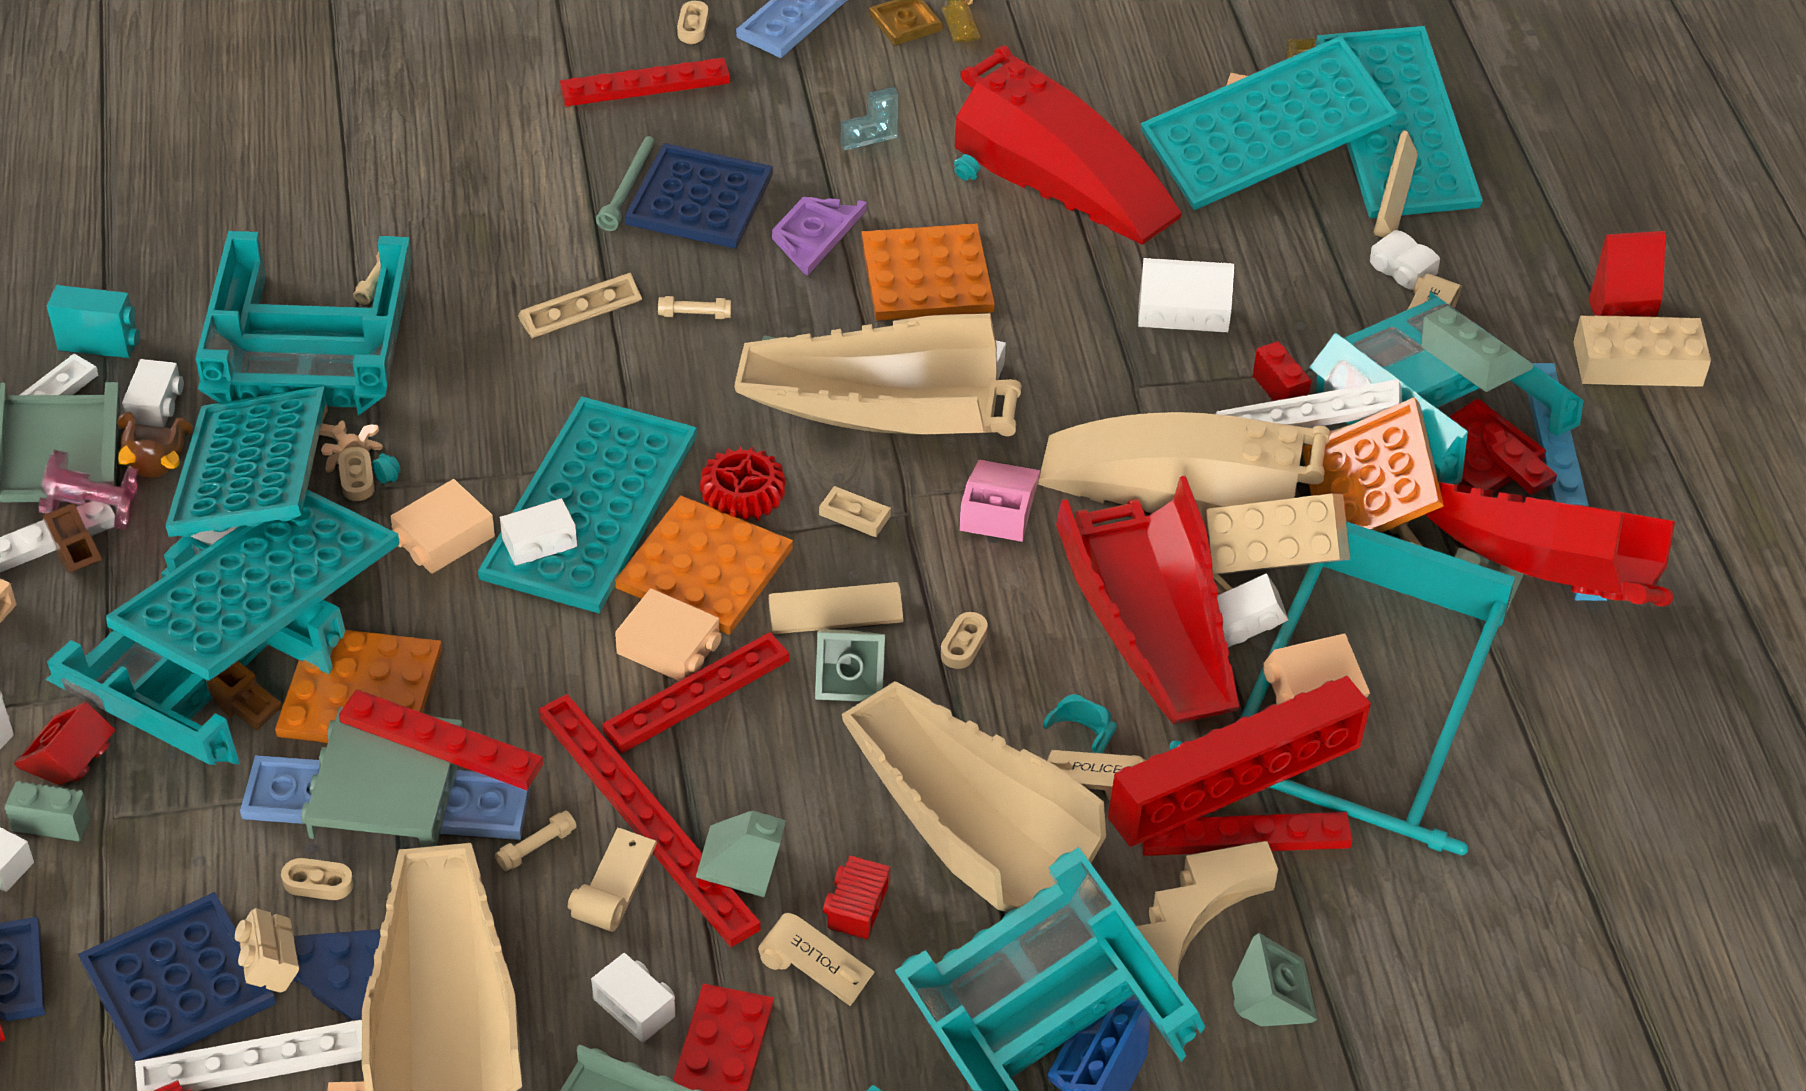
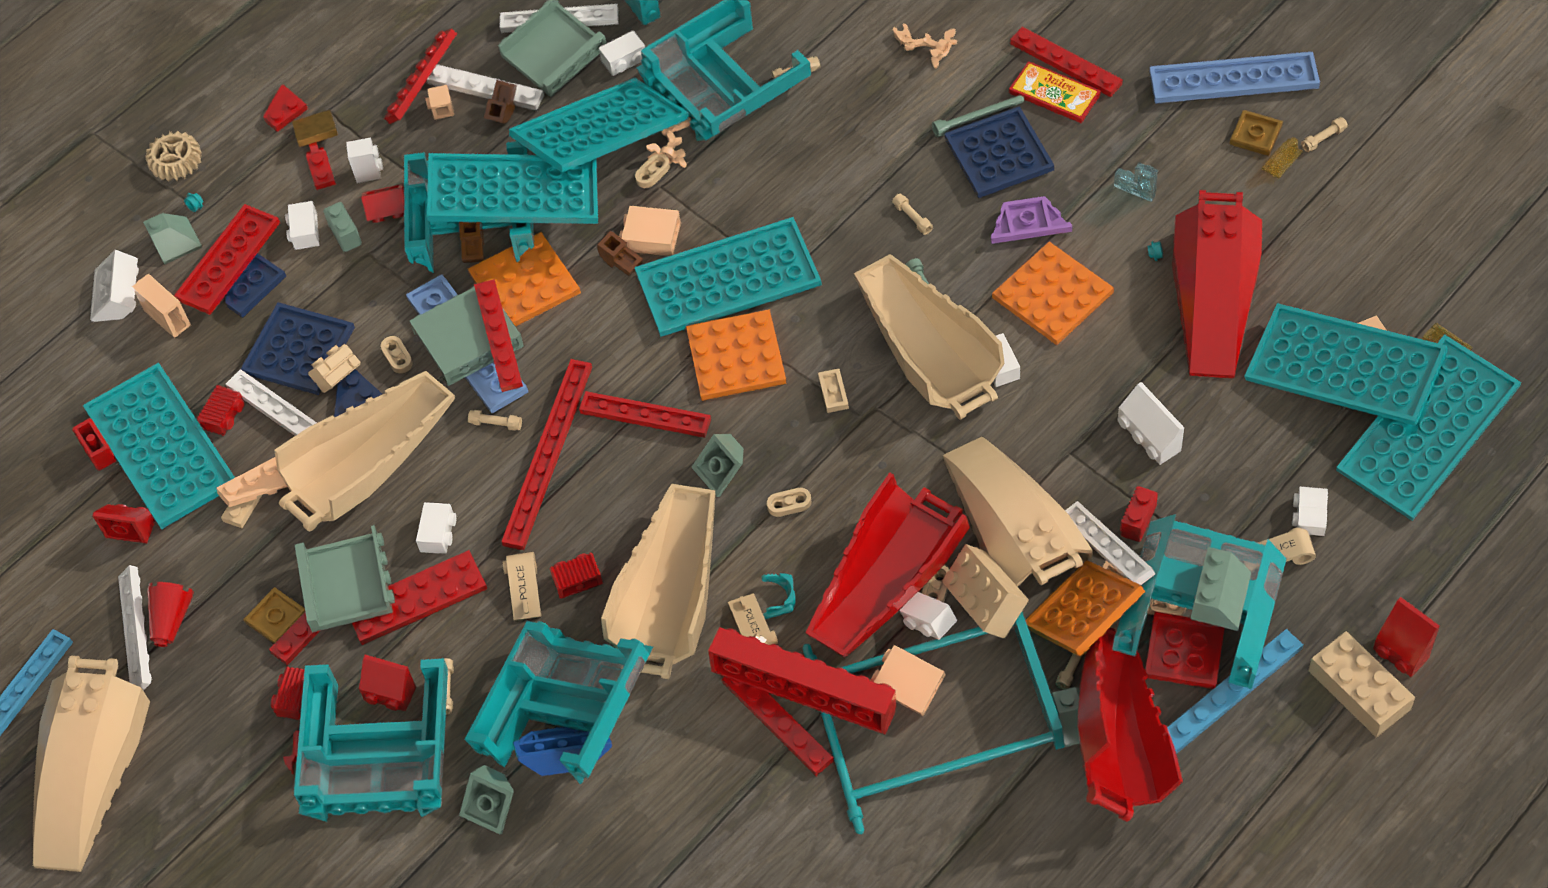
camera: 60 degrees right, 10 degrees up
(76, 487) = (520, 69): clear pink piece -> none
(152, 448) = (586, 79): reddish brown hair -> none
(386, 468) = (668, 179): teal plate -> none
(438, 573) = (615, 253): none -> reddish brown brick
(449, 168) = (940, 48): none -> light nougat piece
(538, 531) = (675, 271): white brick -> none
(580, 305) = (863, 167): tan slope -> none
(614, 882) = (484, 475): tan door -> none
(668, 635) = (668, 375): light nougat brick -> none
(673, 112) = (1055, 92): none -> tile
(693, 22) = (1133, 44): tan plate -> none
(742, 852) = (555, 508): sand green slope -> none
(743, 483) = (804, 322): red gear -> none
(835, 608) = (758, 432): tan slope -> none
(998, 500) = (906, 445): bright pink slope -> none
(1207, 887) = (688, 724): tan arch -> none
(1272, 986) = (680, 797): sand green slope -> none
(1396, 187) = (1364, 464): tan slope -> none
(1517, 459) = (1187, 674): red hinge -> none

